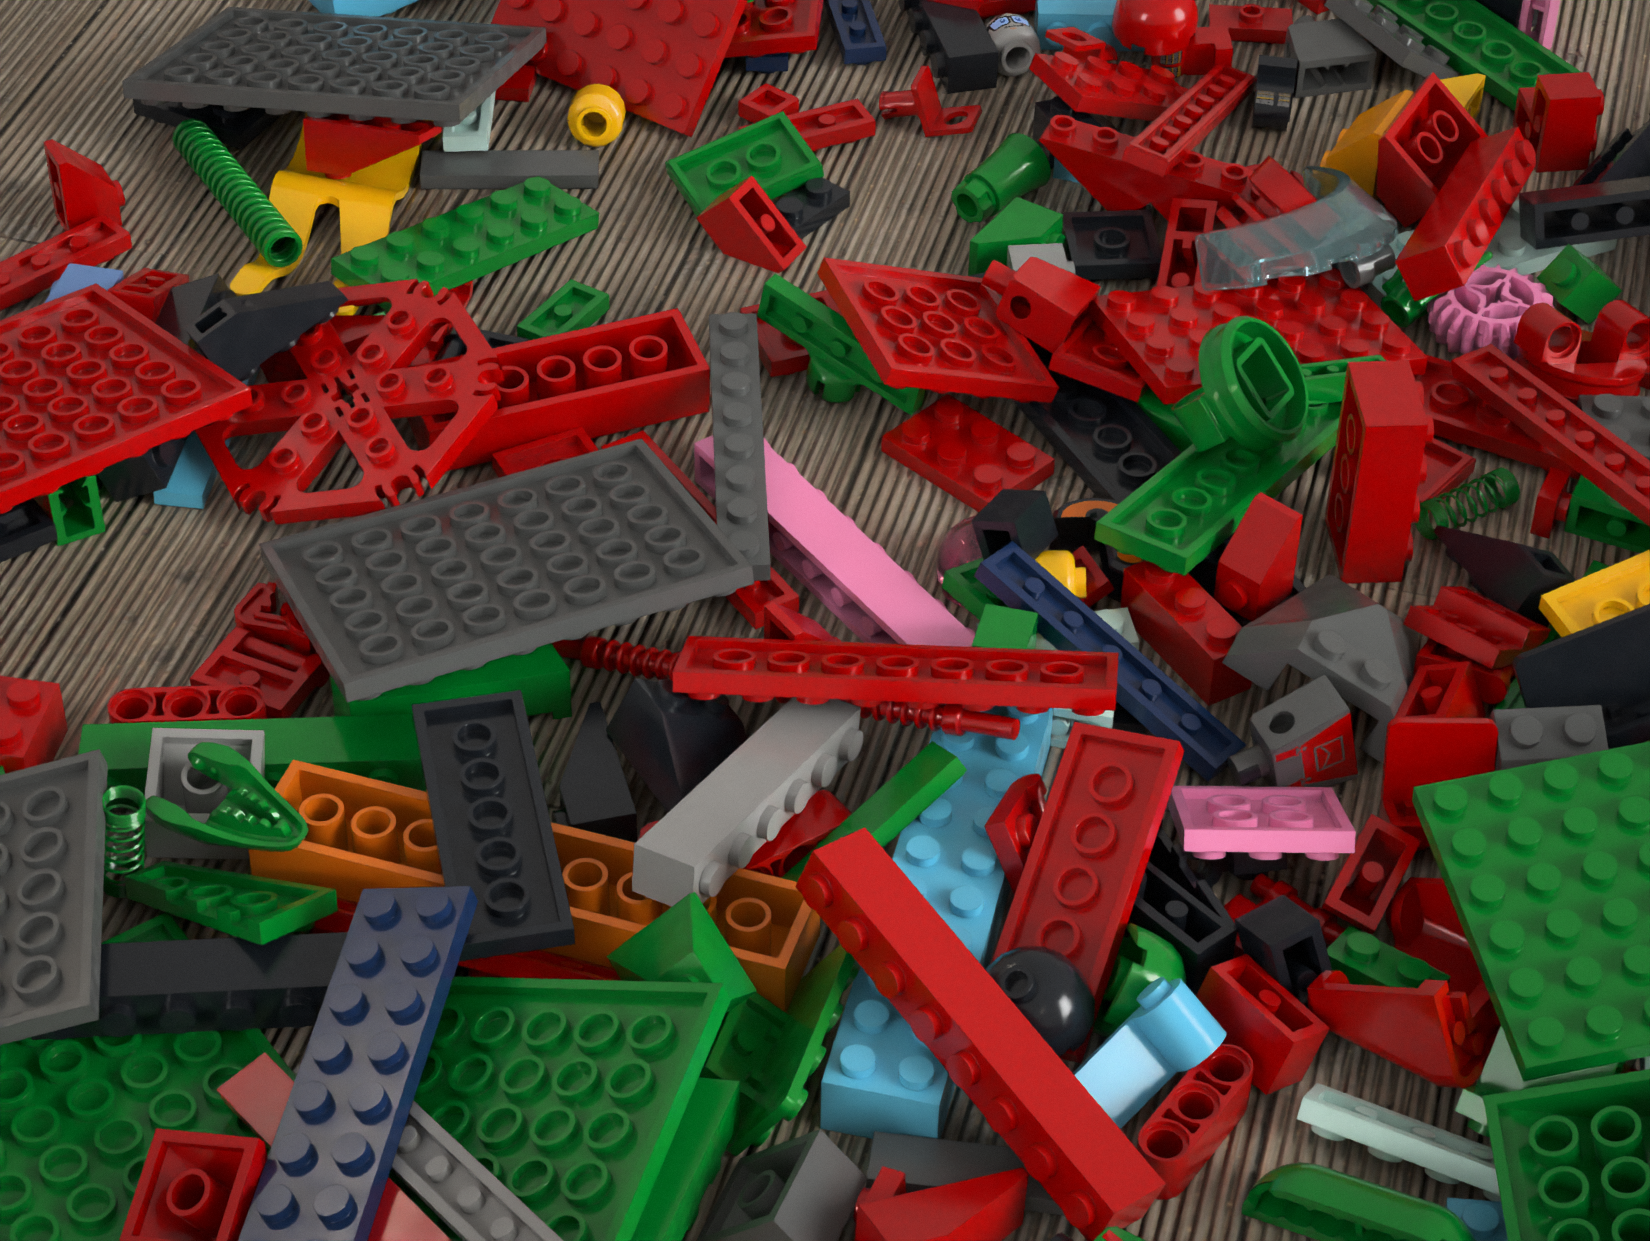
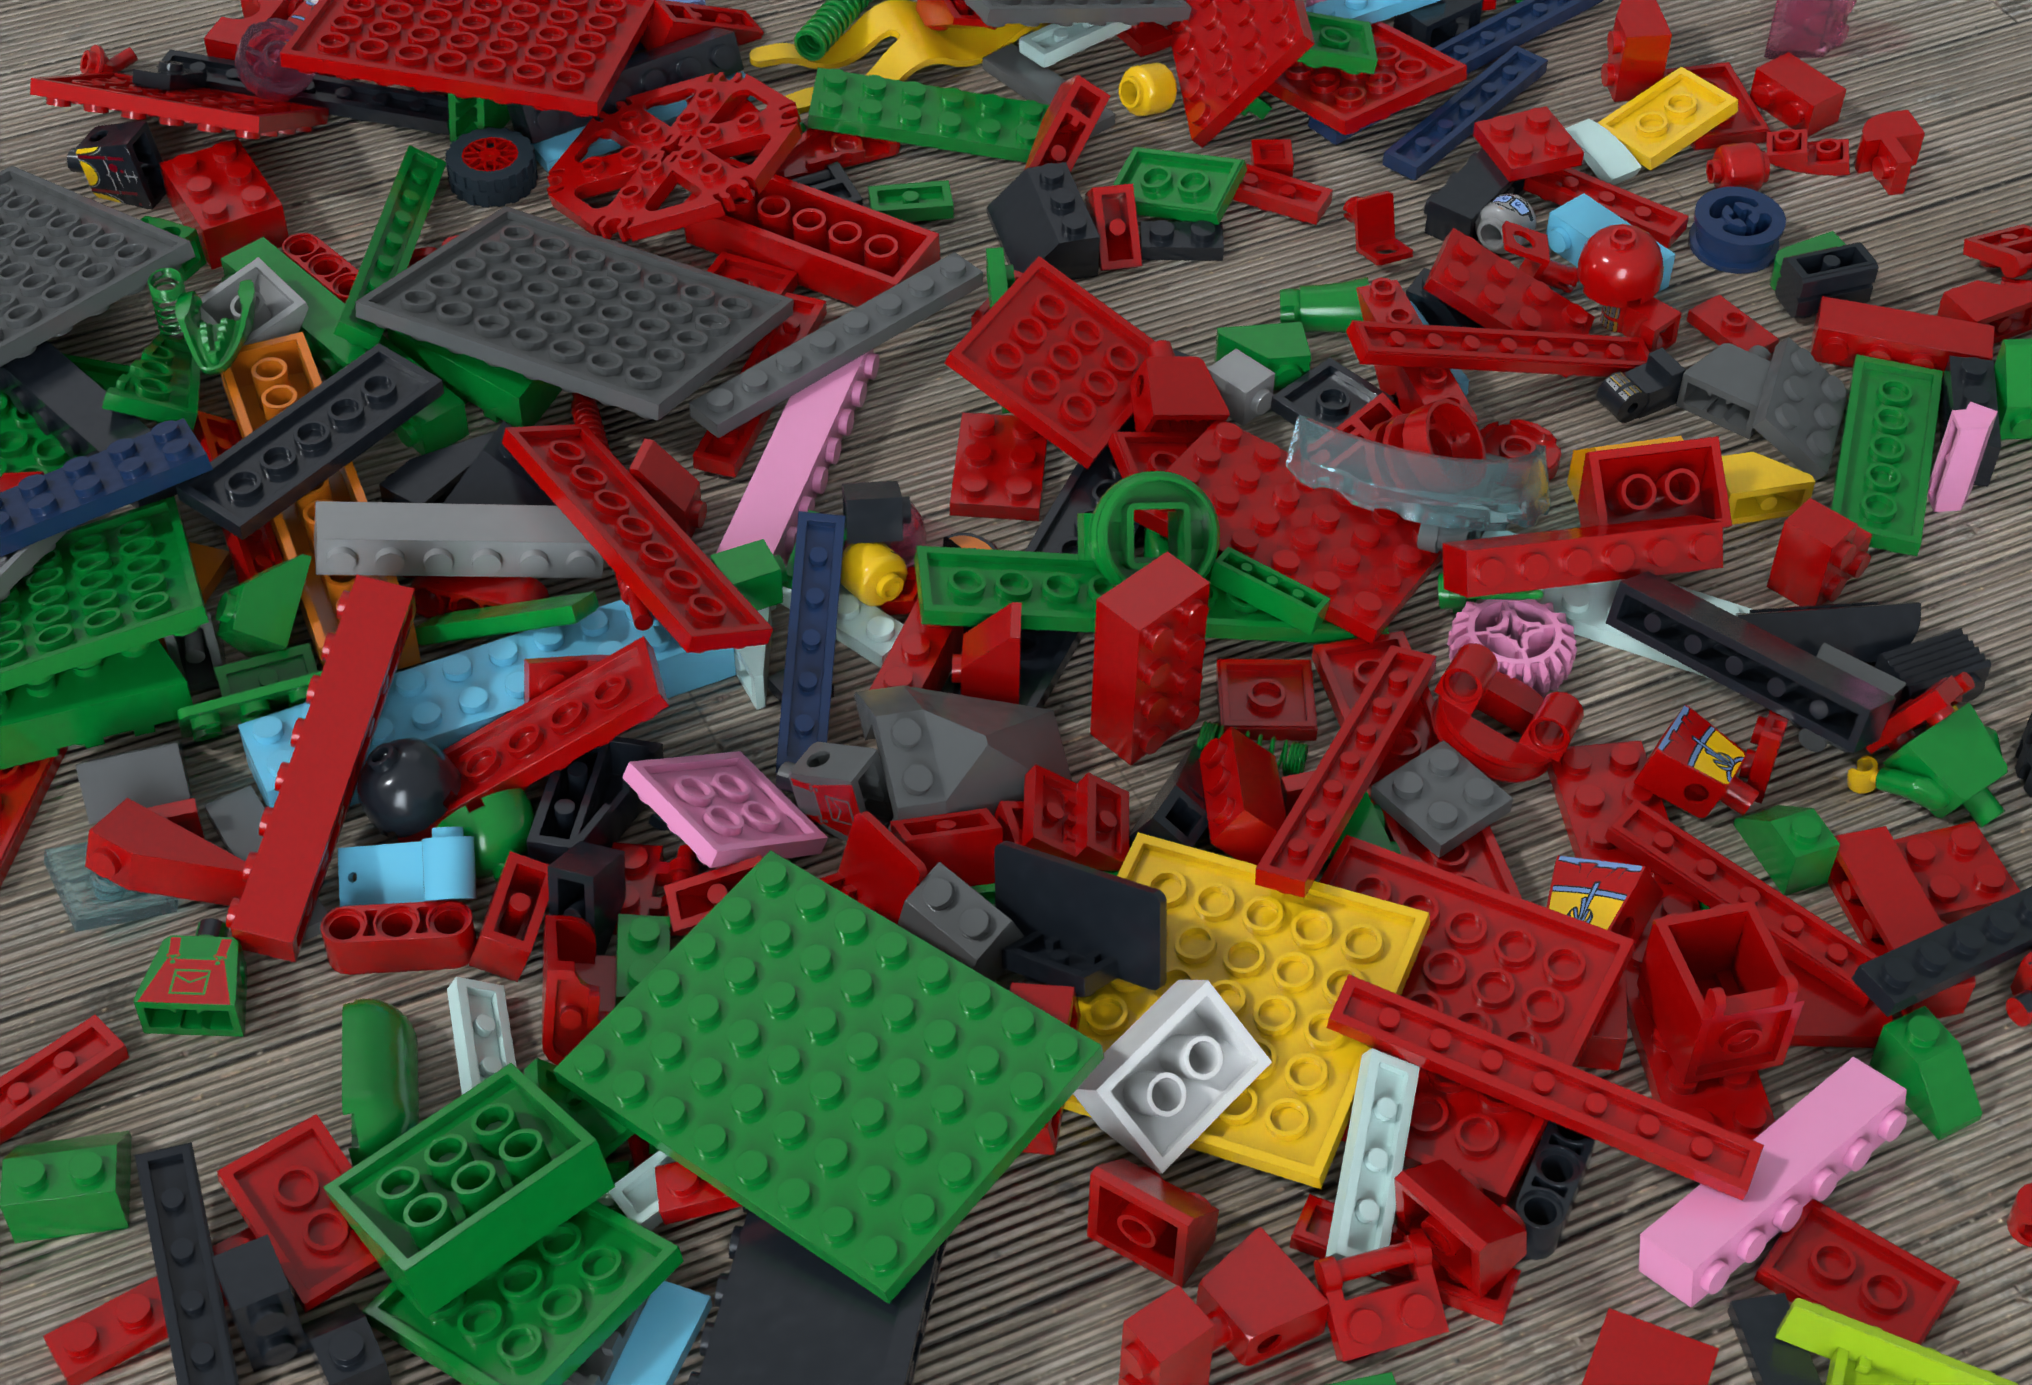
camera: 50 degrees right, 5 degrees up
(158, 533) = (491, 167): none -> black wheel
(228, 644) = (392, 239): none -> green plate
(253, 327) = (664, 67): black slope -> none
(602, 177) = (1068, 123): none -> red slope
(700, 260) = (1047, 219): none -> black slope
(1548, 524) = (1241, 795): none -> red brick
(1579, 284) = (1605, 673): green brick -> none

